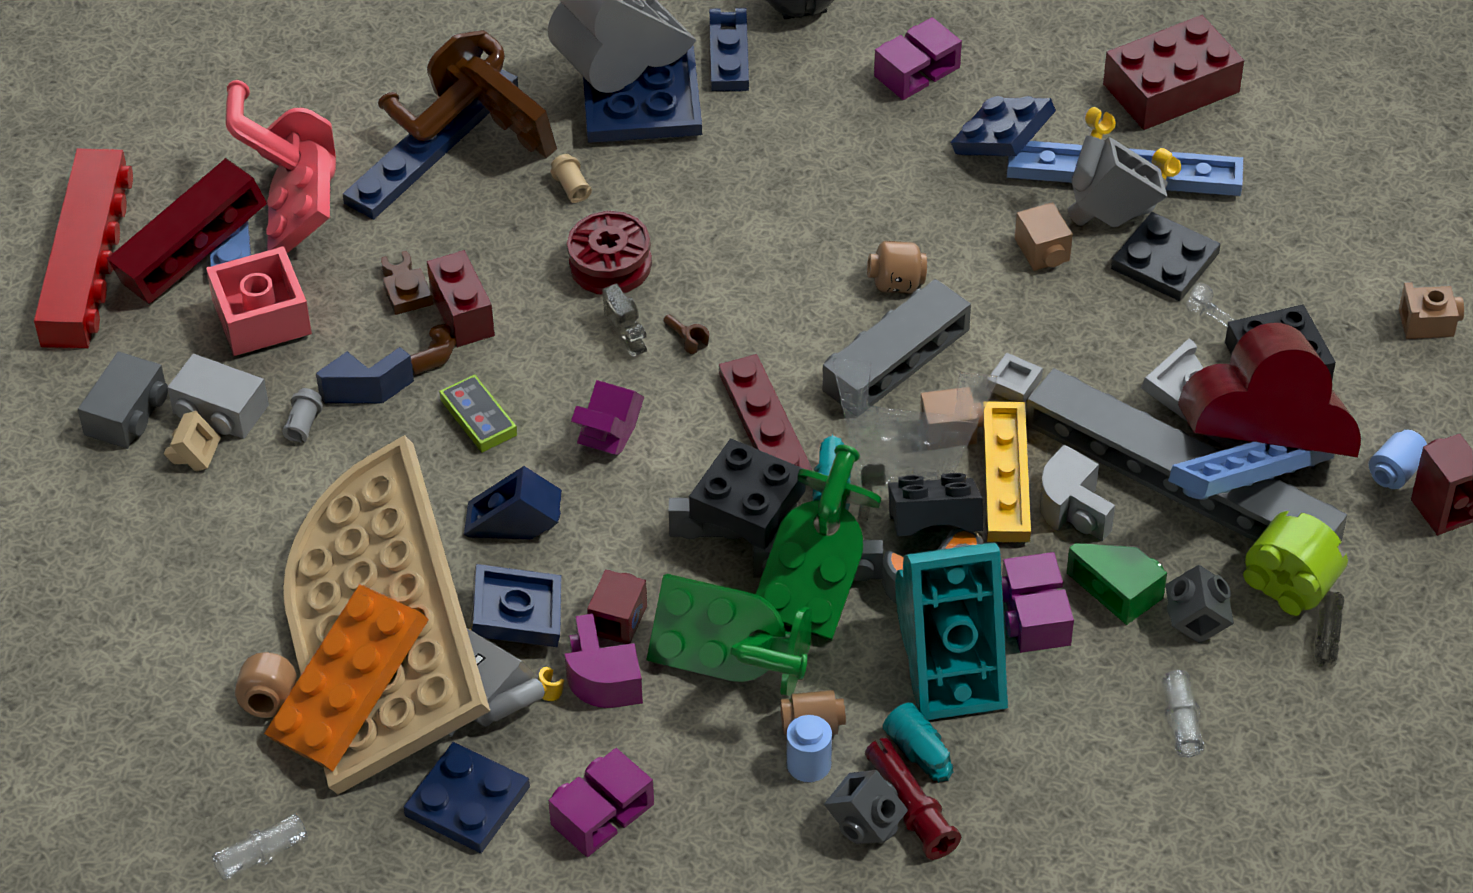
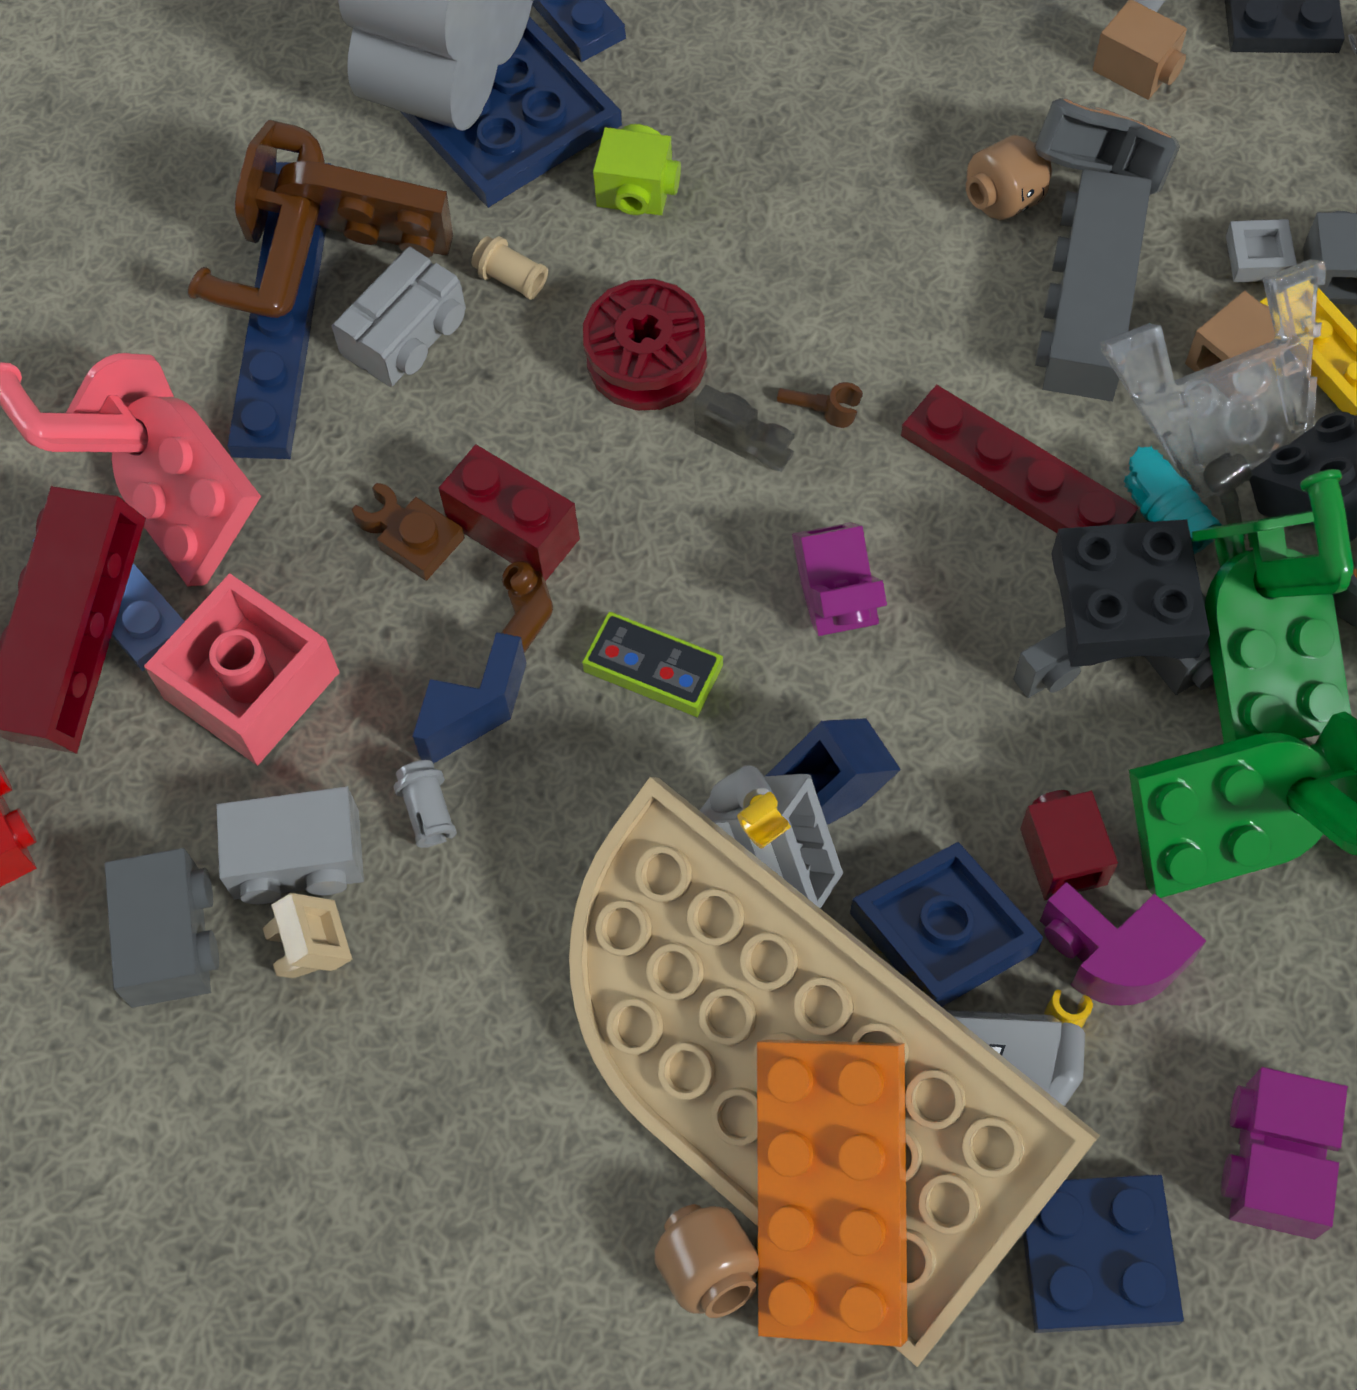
camera: 30 degrees left, 15 degrees up
(459, 509) = (780, 825): none -> light grey torso
(487, 173) = (400, 317): none -> light grey brick
(682, 160) = (637, 167): none -> lime brick
(961, 270) = (1106, 143): none -> dark grey animal

